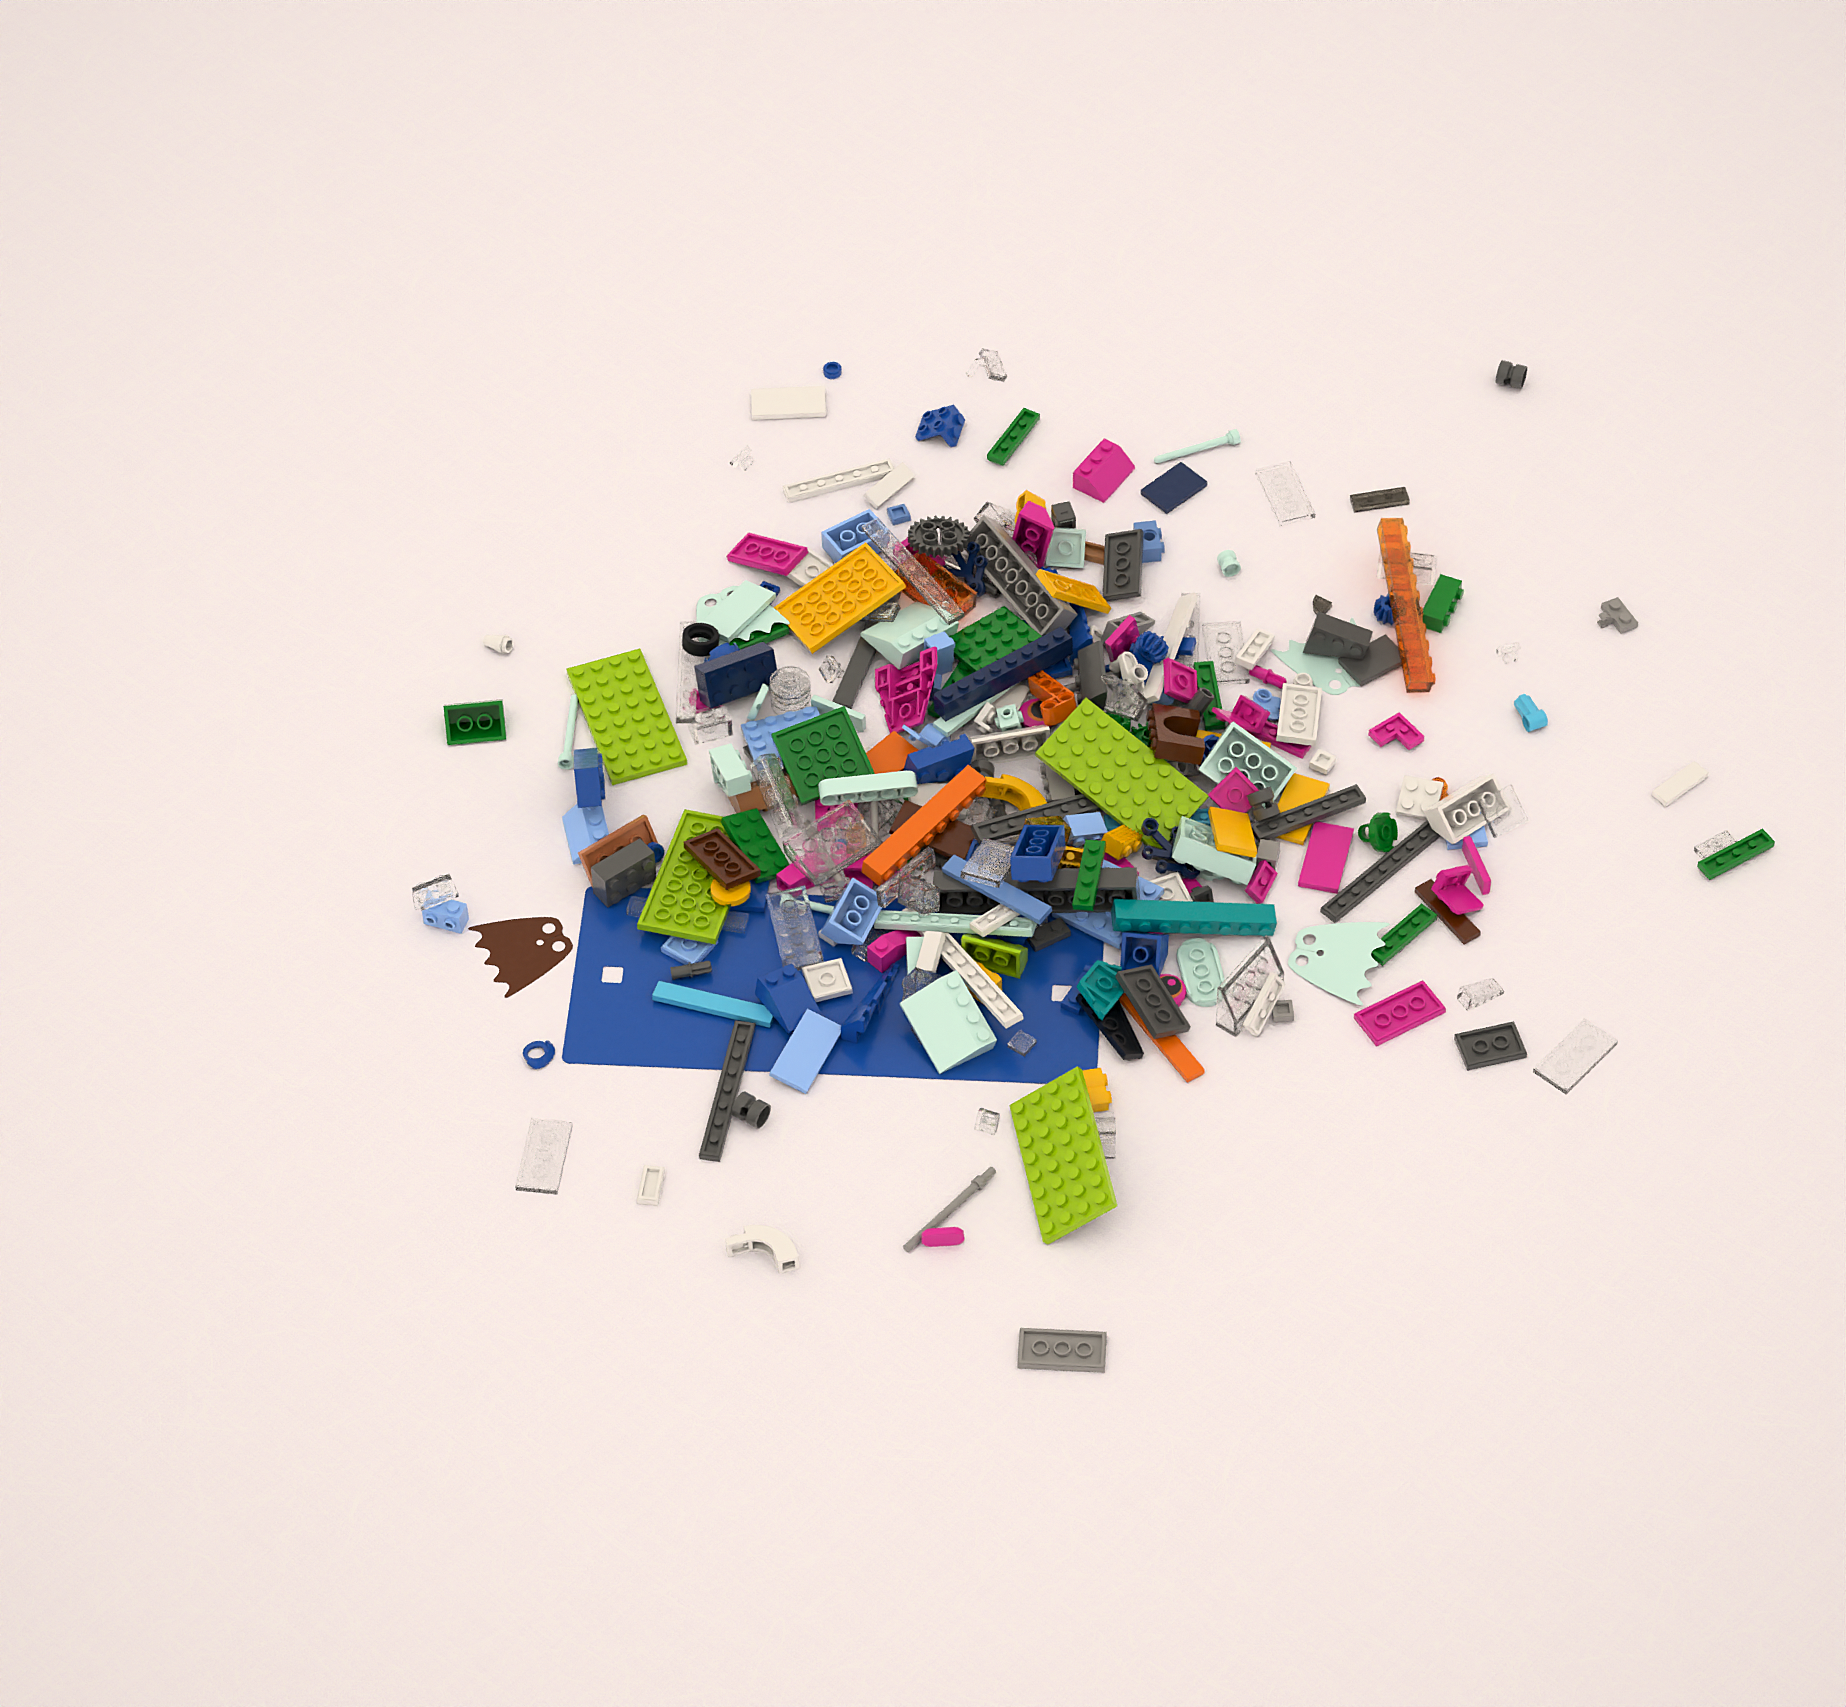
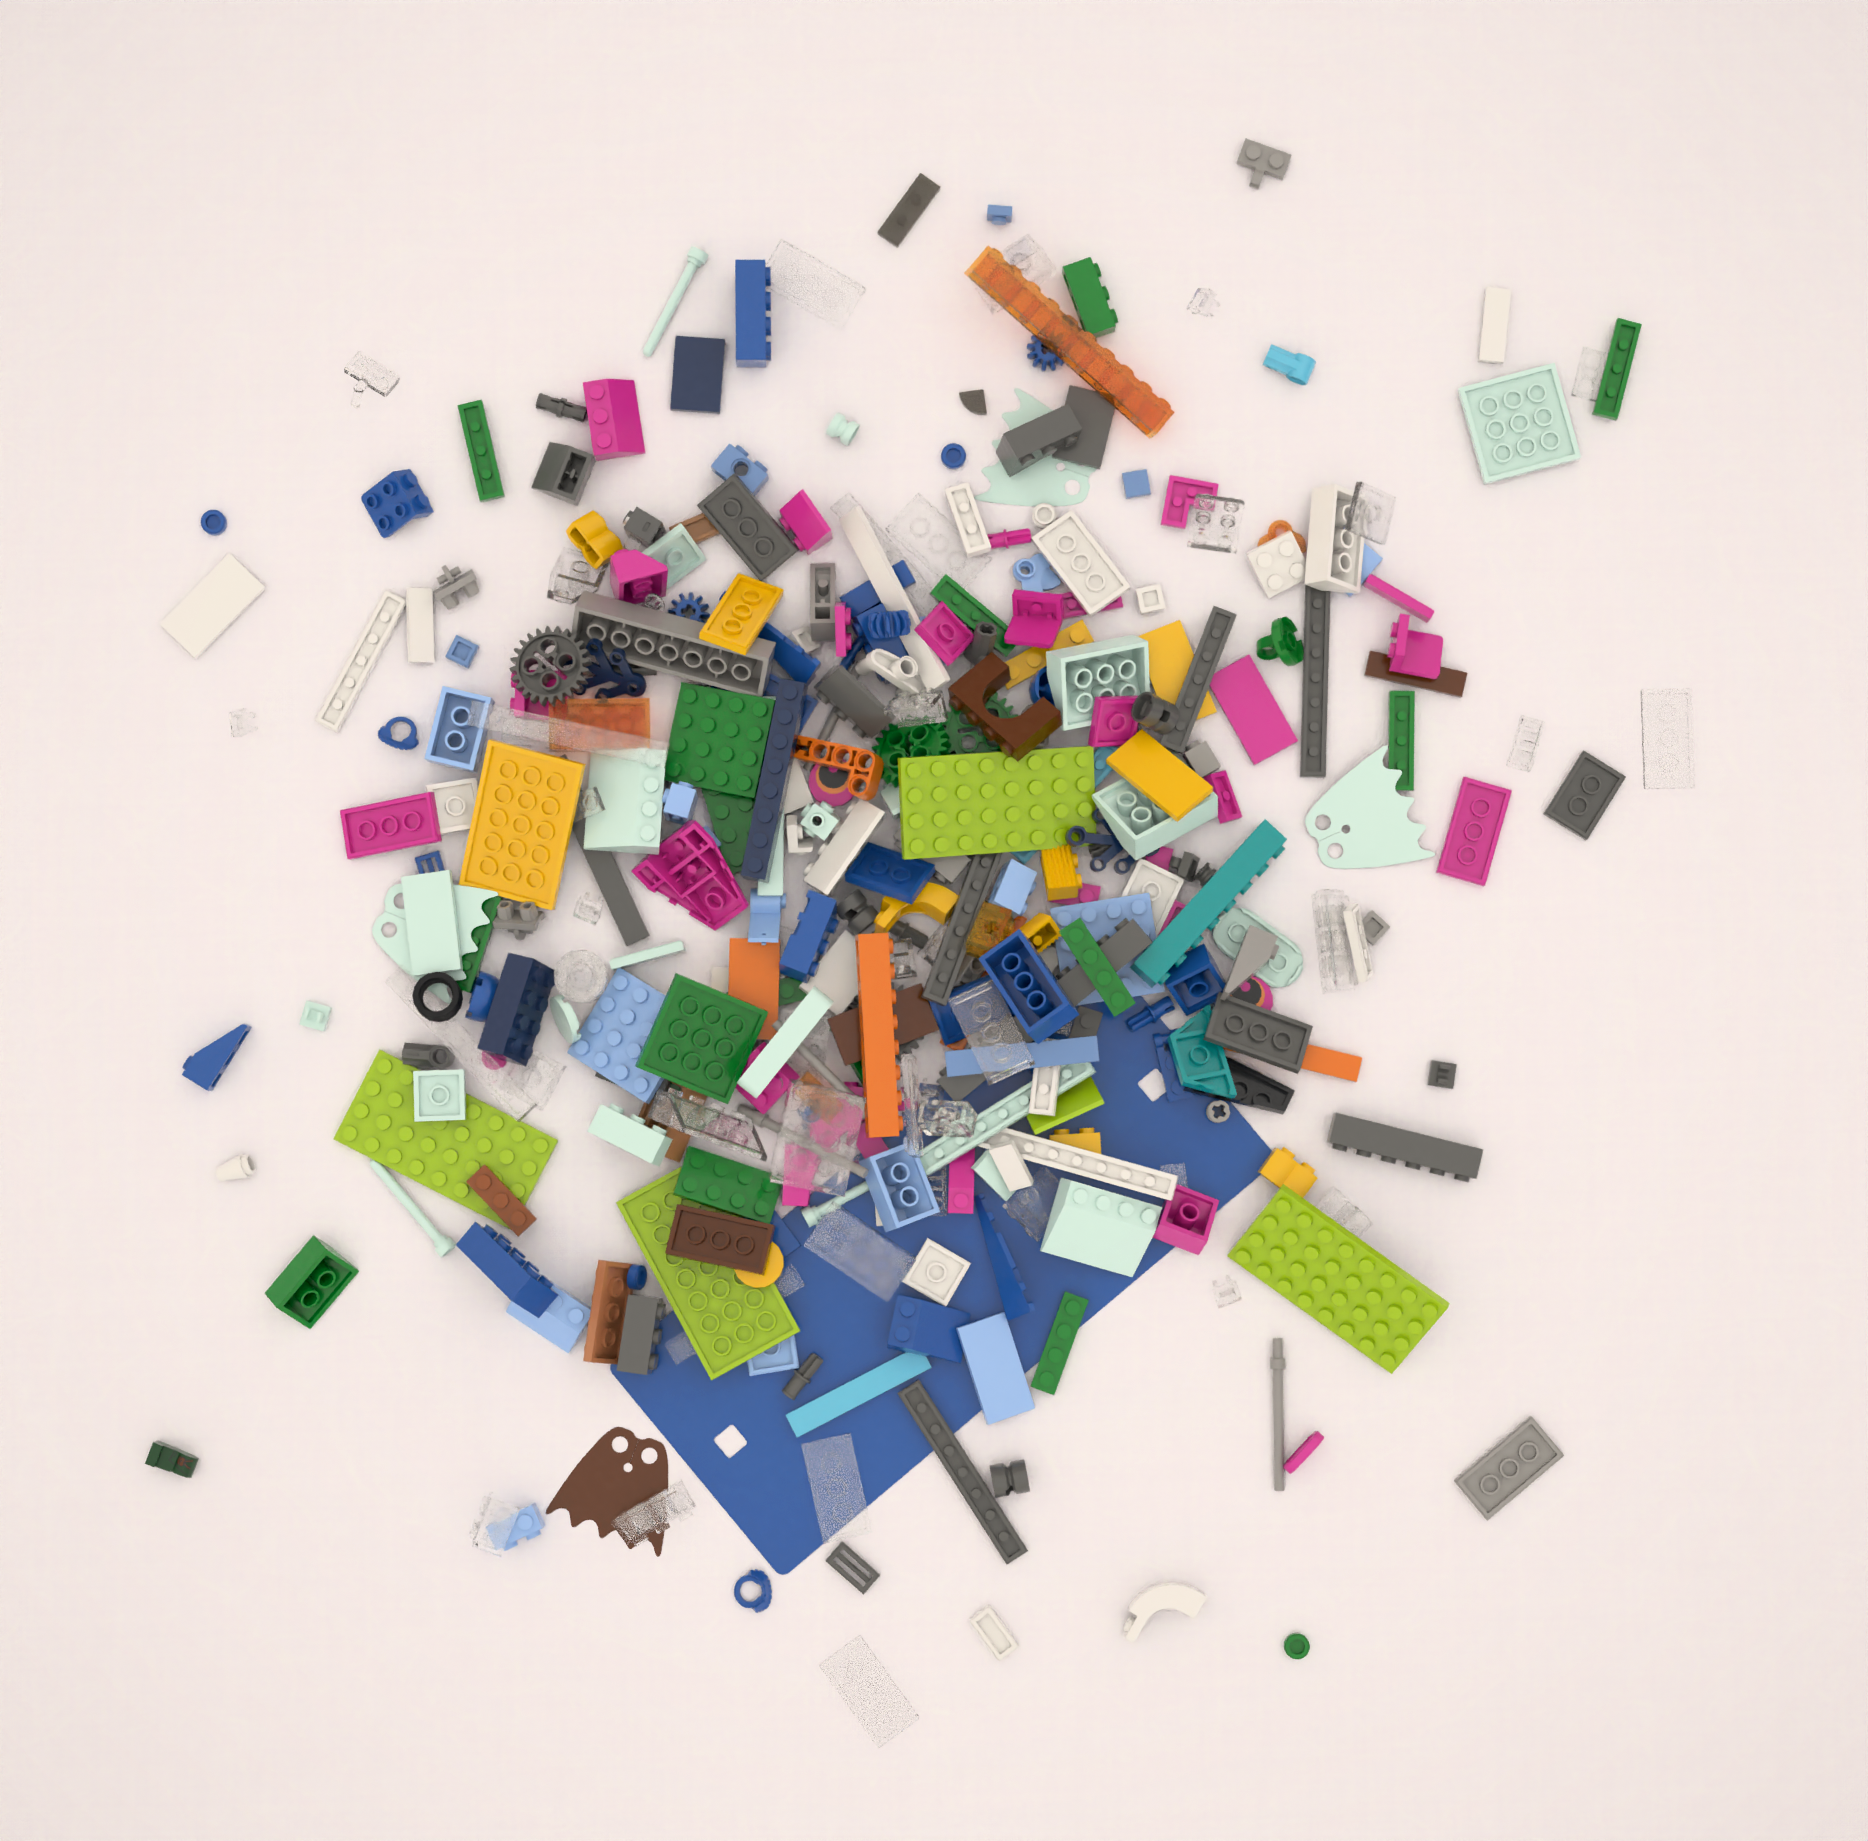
camera: 45 degrees left, 35 degrees up
(300, 741) = (171, 1459): none -> dark green leg
(528, 962) = (654, 1514): none -> clear slope
(547, 586) = (211, 1062): none -> blue slope
(609, 1100) = (869, 1581): none -> dark grey tile
(623, 610) = (315, 1016): none -> light aqua tile
(623, 758) = (501, 1200): none -> dark orange plate
(645, 1040) = (836, 1488): none -> clear tile
(647, 685) = (439, 1095): none -> light aqua plate
(662, 668) = (425, 1055): none -> dark grey piece
(782, 651) = (518, 921): none -> light grey hips
(813, 517) = (410, 742): none -> blue piece
(824, 1337) = (1296, 1646): none -> green tile
(858, 1071) = (1059, 1343): none -> green plate
(931, 479) = (446, 592): none -> light grey hips
(1004, 1062) = (1186, 1220): none -> dark pink slope
(1020, 768) = (889, 874): none -> blue plate
(1049, 476) = (564, 472): none -> dark grey slope
(1079, 449) = (561, 407): none -> dark grey pin
(1082, 1028) = (1209, 1112): none -> light grey bush
(1097, 952) = (1150, 1014): none -> blue axle
(1158, 585) = (805, 523): none -> dark pink slope
(1181, 1131) = (1405, 1146): none -> dark grey brick
(1185, 961) = (1252, 956): none -> light grey slope
(1233, 473) = (750, 313): none -> blue brick
(1245, 1116) = (1441, 1074): none -> dark grey tile
(1280, 621) = (953, 456): none -> blue tile
(1374, 706) = (1136, 484): none -> medium blue tile
(1403, 749) = (1215, 523): none -> clear bracket
(1430, 532) = (999, 214): none -> medium blue plate
(1644, 837) = (1519, 423): none -> light aqua plate

